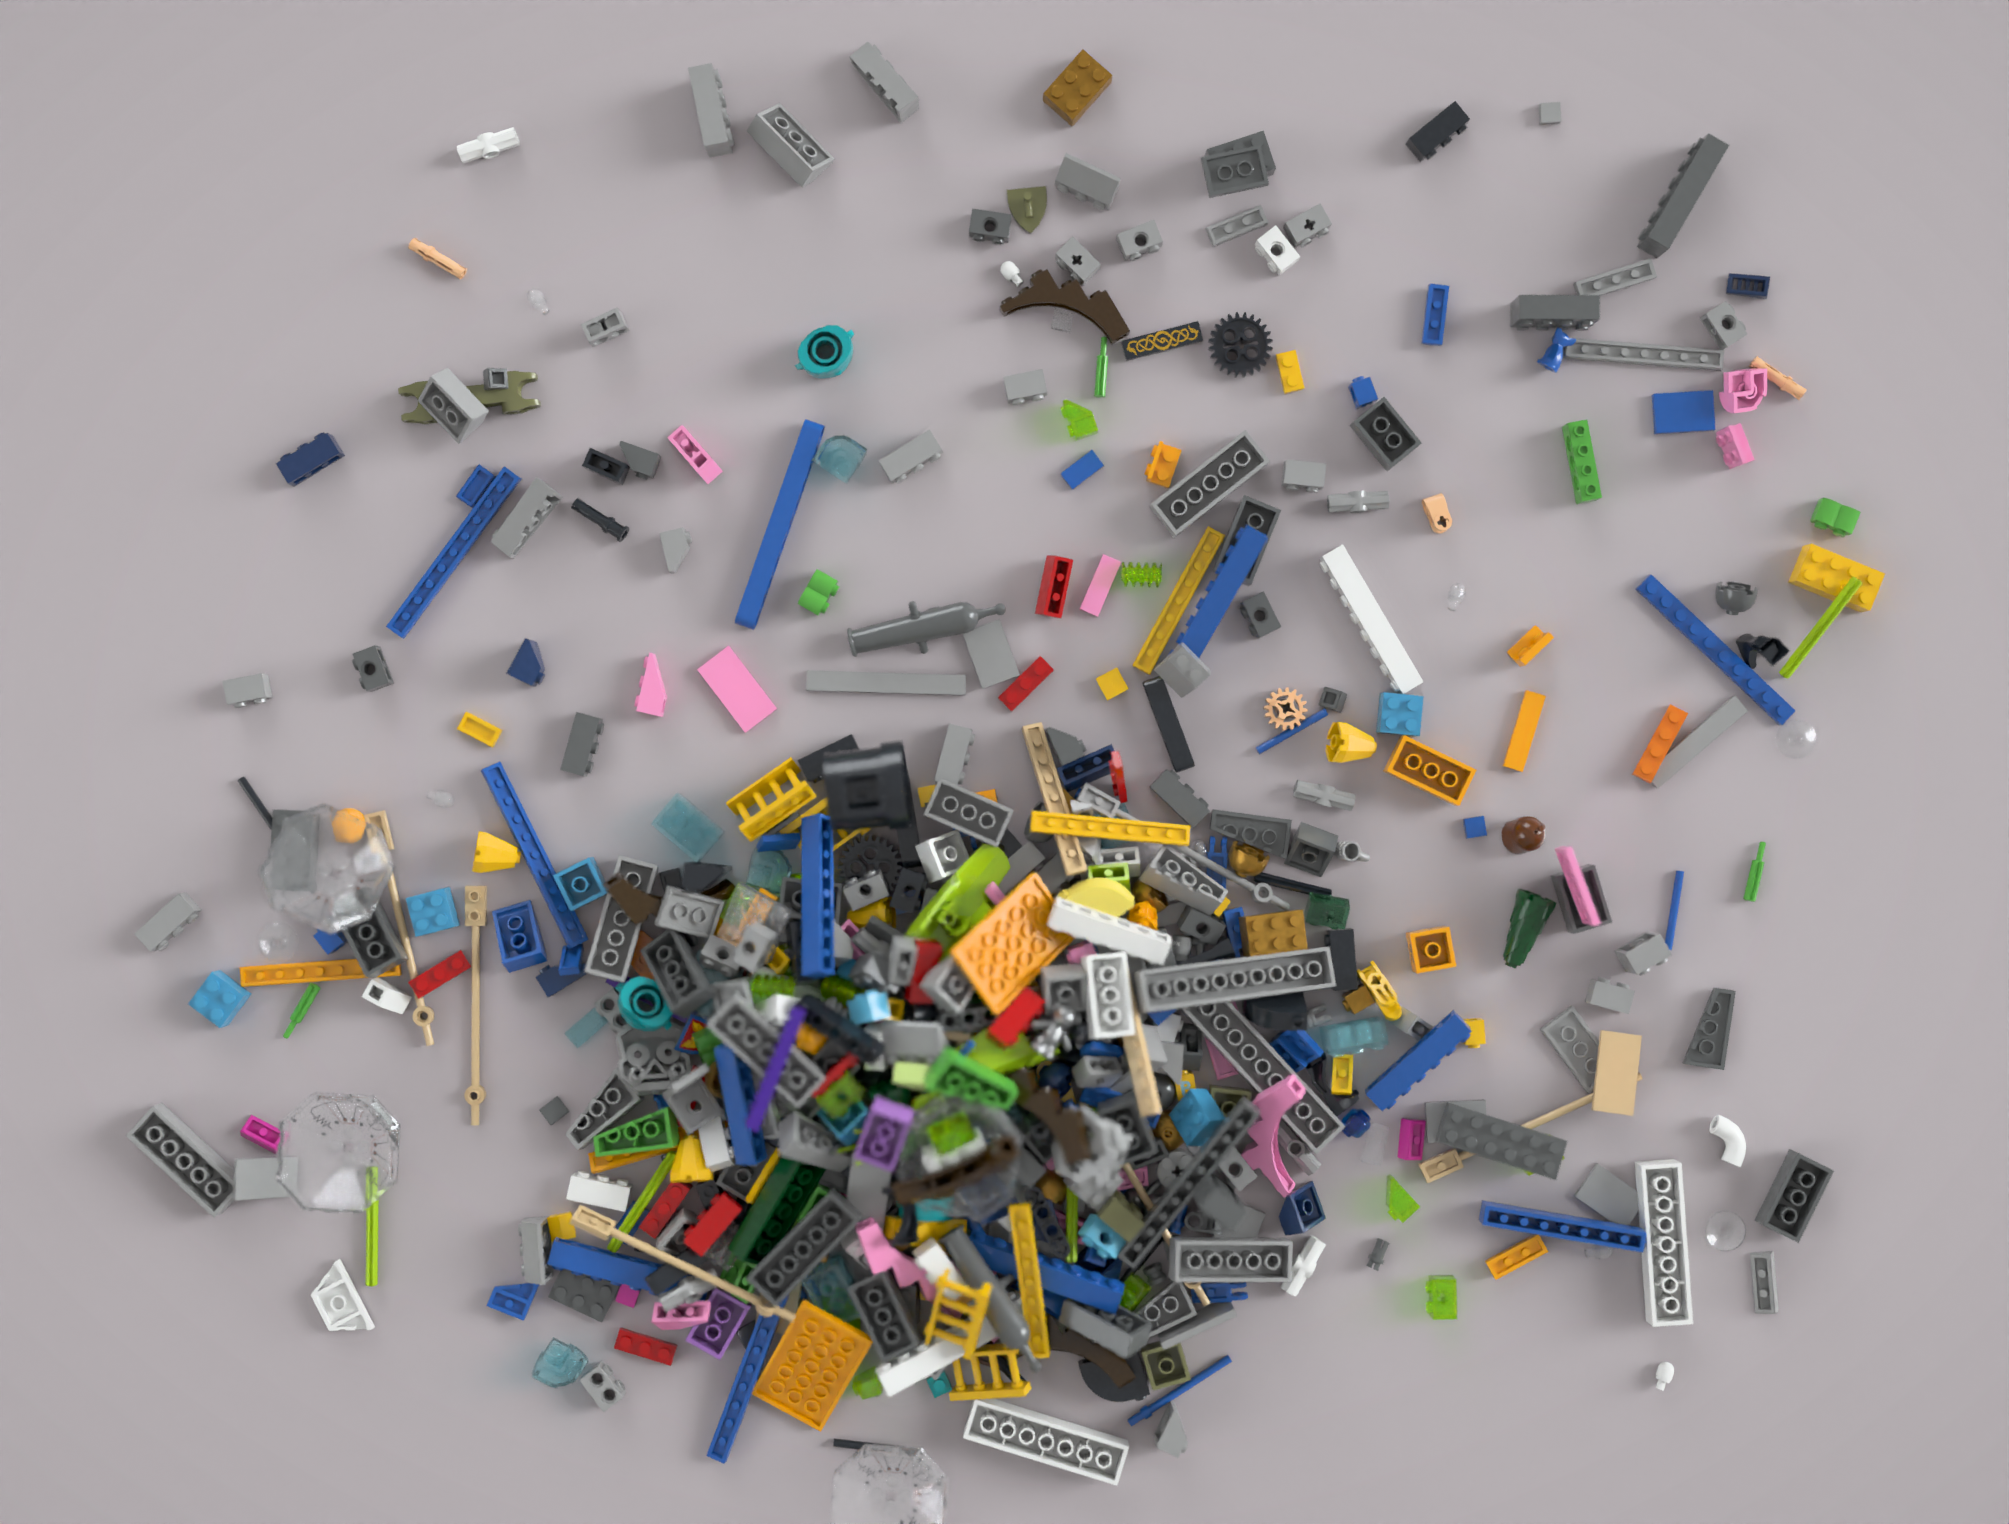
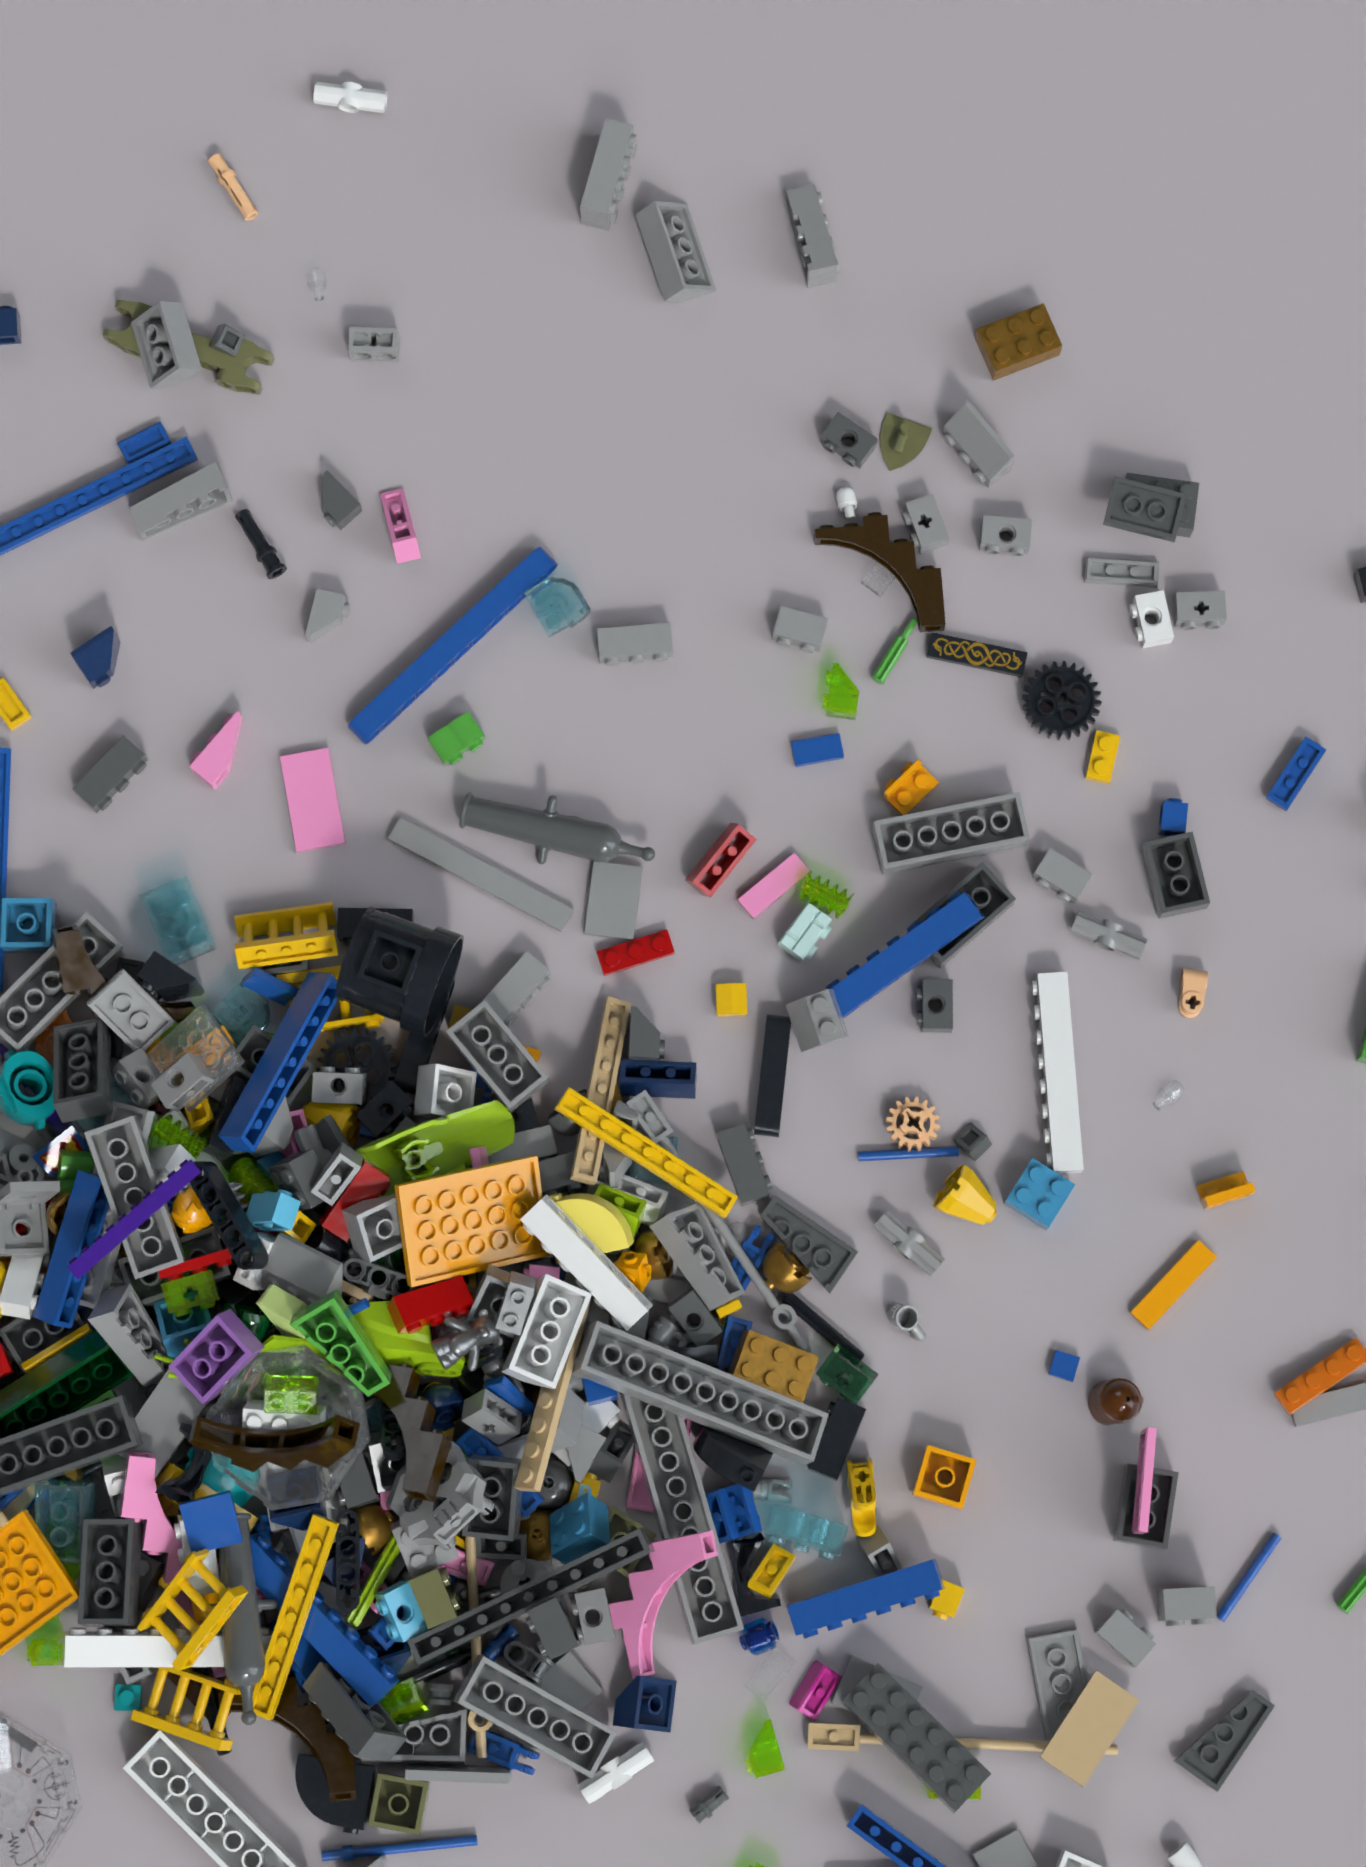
camera: 30 degrees right, 10 degrees down
(606, 466) = (296, 490): black brick -> none
(826, 335) = (595, 467): teal piece -> none
(940, 1248) = (211, 1522): none -> blue tile
(1076, 989) = (515, 1303): none -> light grey brick
(1117, 777) = (684, 1102): red plate -> none
(1140, 609) = (805, 933): none -> light aqua brick
(1178, 600) = (852, 945): yellow tile -> none
(1303, 1156) = (680, 1645): light grey piece -> none
(1311, 849) = (863, 1296): dark grey slope -> none
(1357, 999) = (831, 1494): pearl gold brick -> none
(1429, 770) = (1042, 1273): light orange brick -> none
(1527, 922) = (1069, 1503): dark green cone -> none

